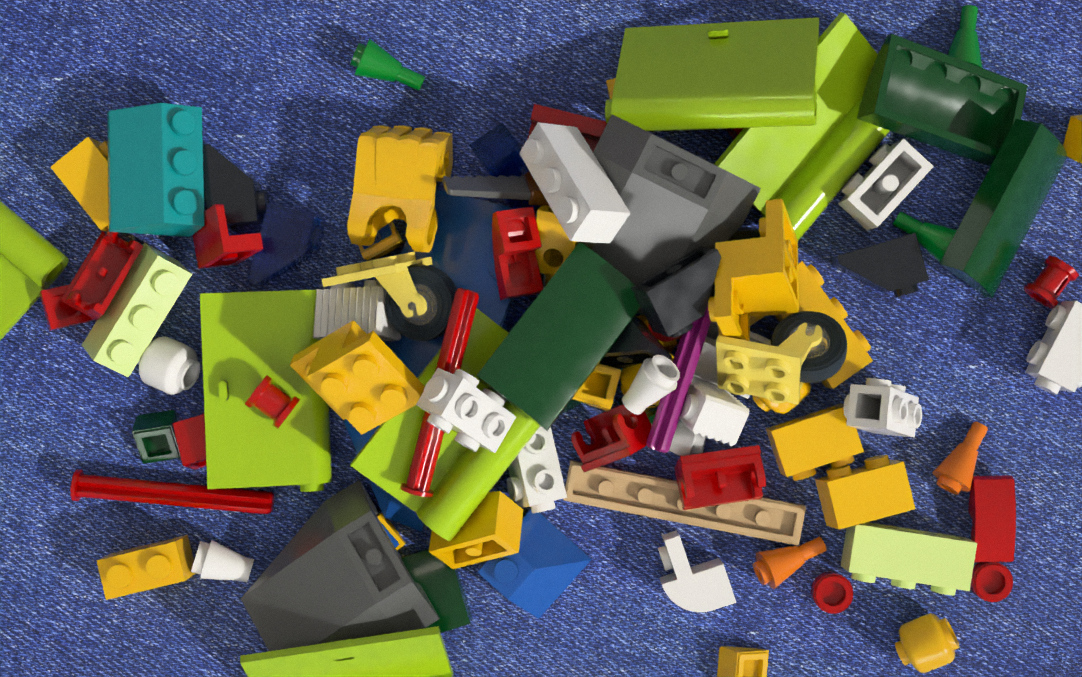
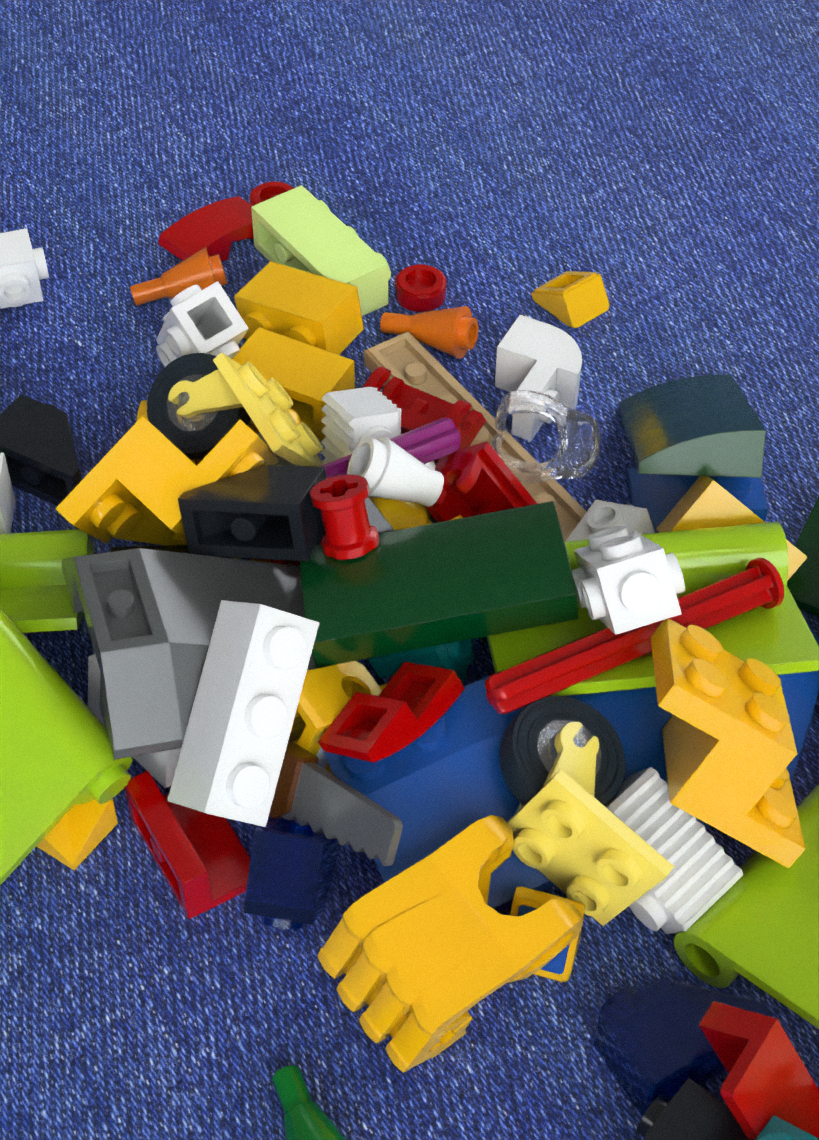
camera: 135 degrees left, 40 degrees down
(562, 592) = (694, 429): none -> slope
(622, 540) = (577, 438): none -> clear piece
(630, 319) = (345, 516): none -> red bush
(927, 643) = (383, 194): yellow head -> none

